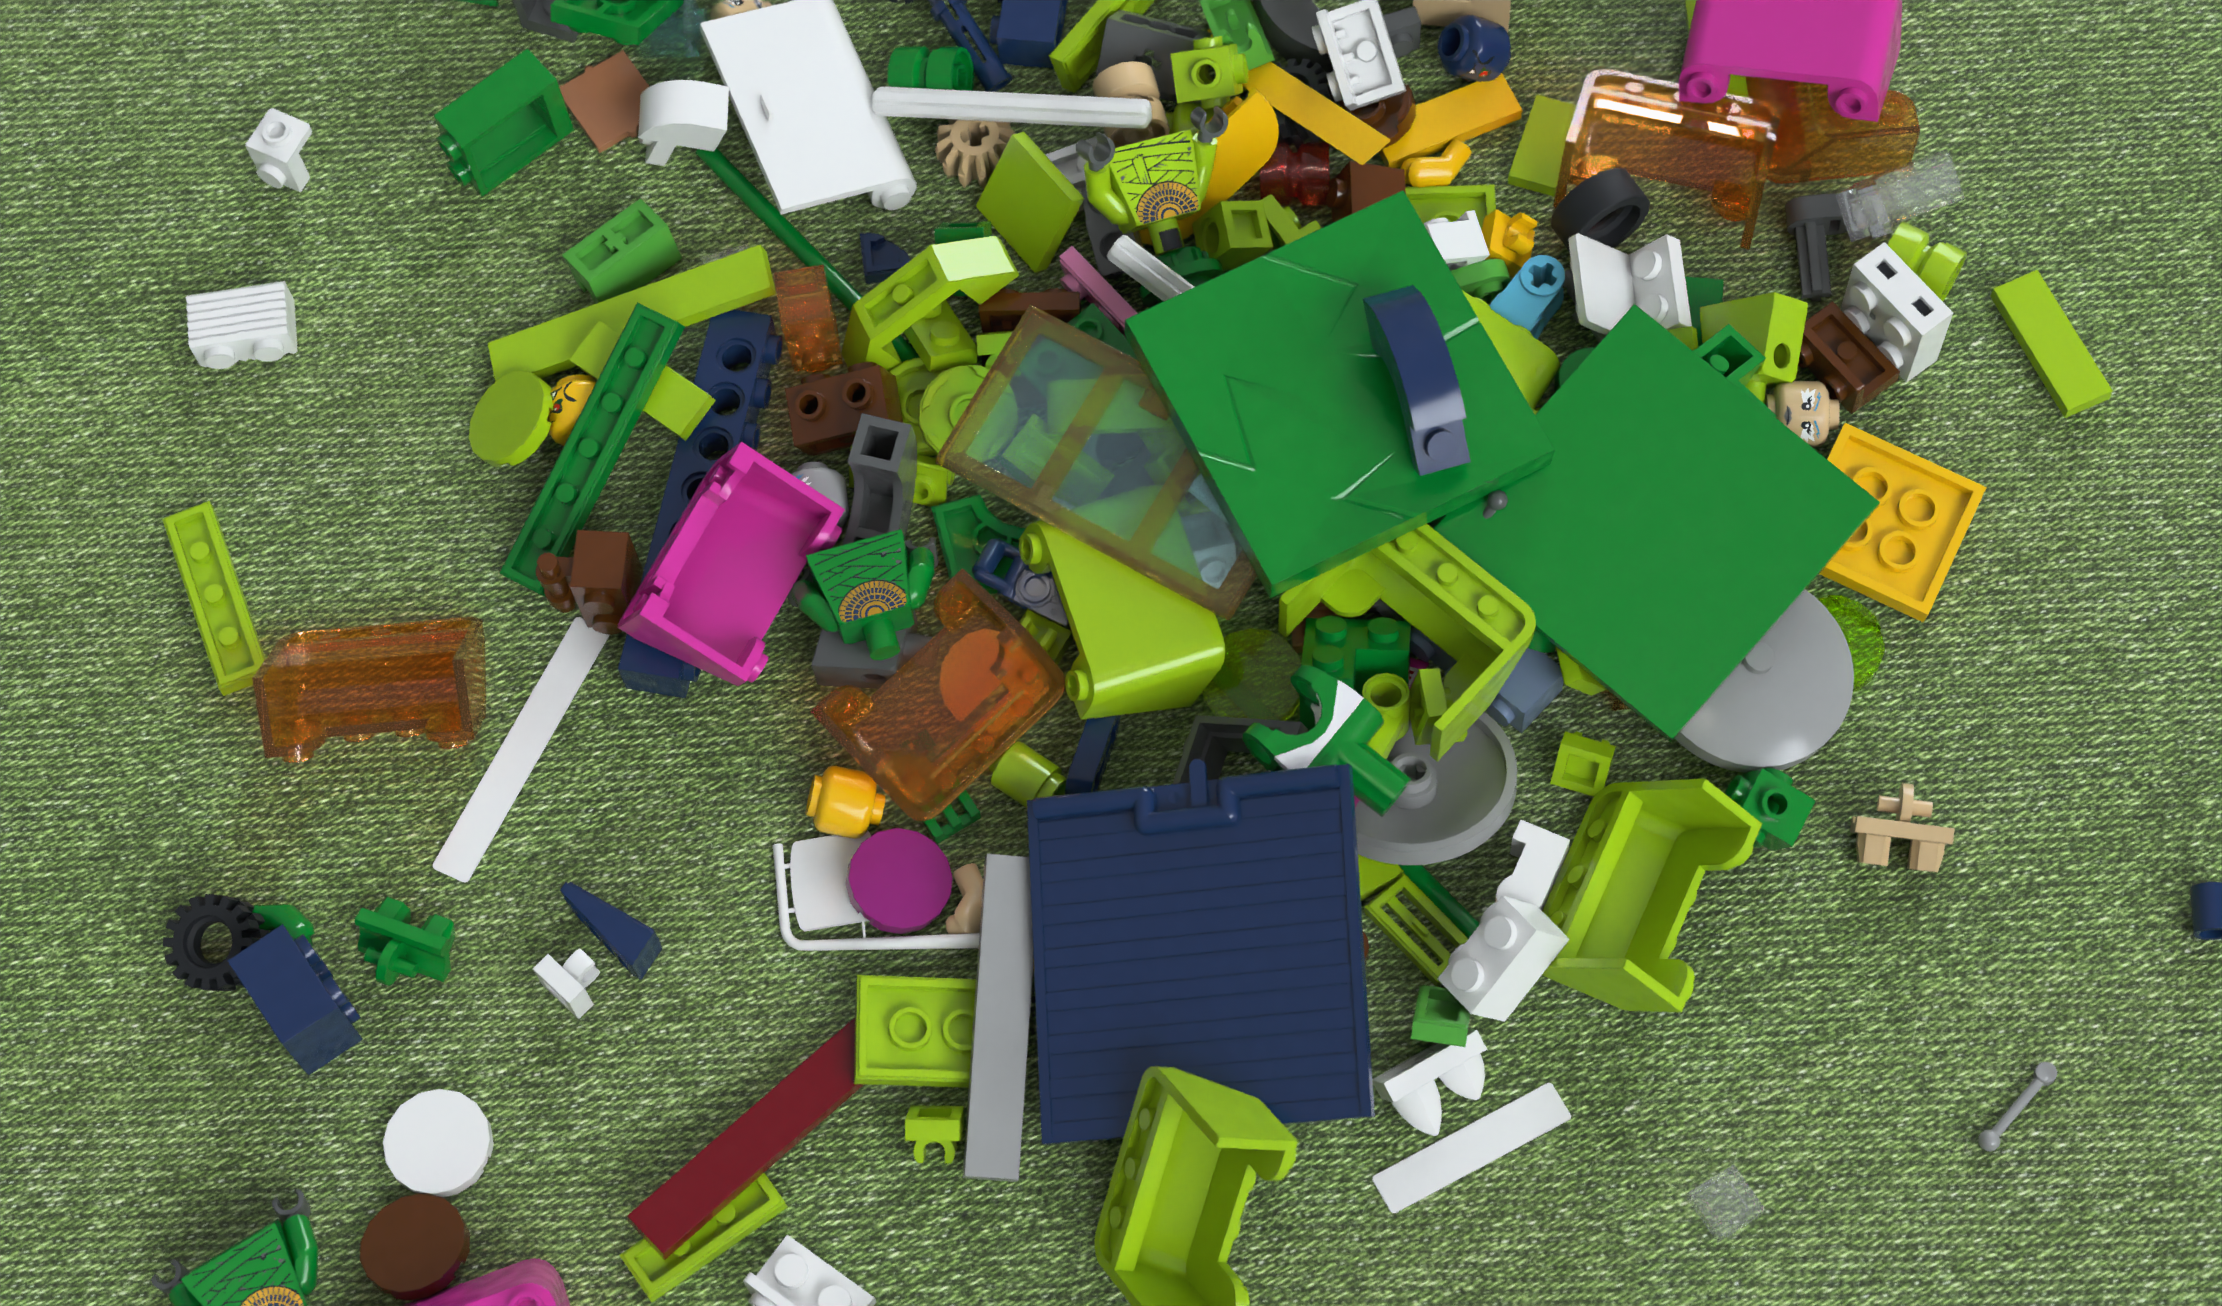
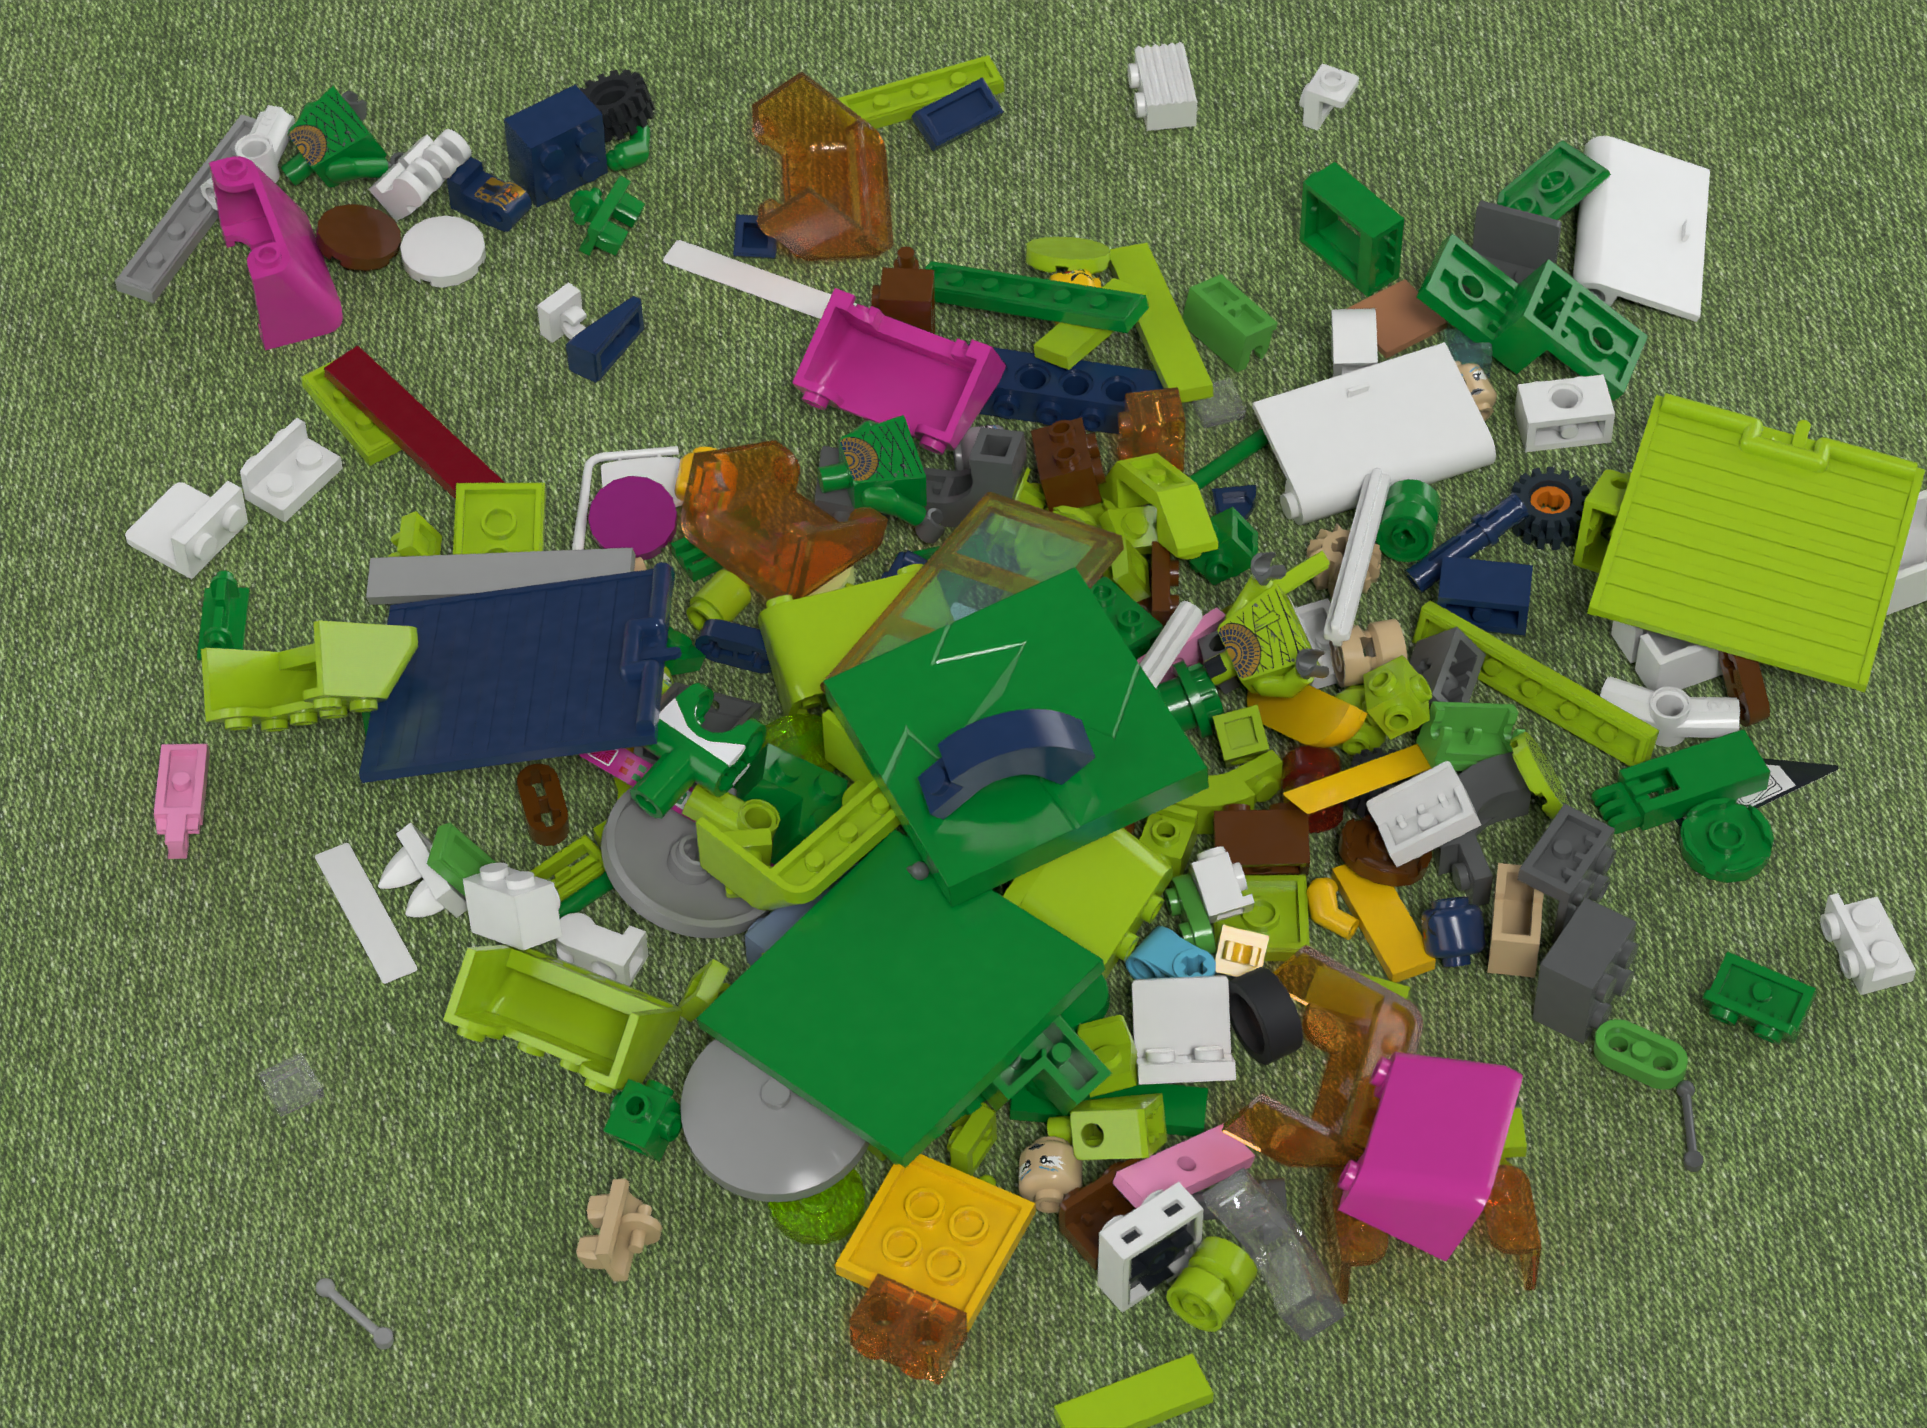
camera: 85 degrees right, 15 degrees down
(260, 550) = (957, 114): none -> dark blue tile
(339, 1177) = (420, 173): none -> white legs
(357, 1089) = (486, 196): none -> dark blue leg
(439, 772) = (751, 240): none -> dark blue slope
(1772, 269) = (1193, 1163): none -> bright pink tile
(1992, 542) = (914, 1320): none -> clear orange brick

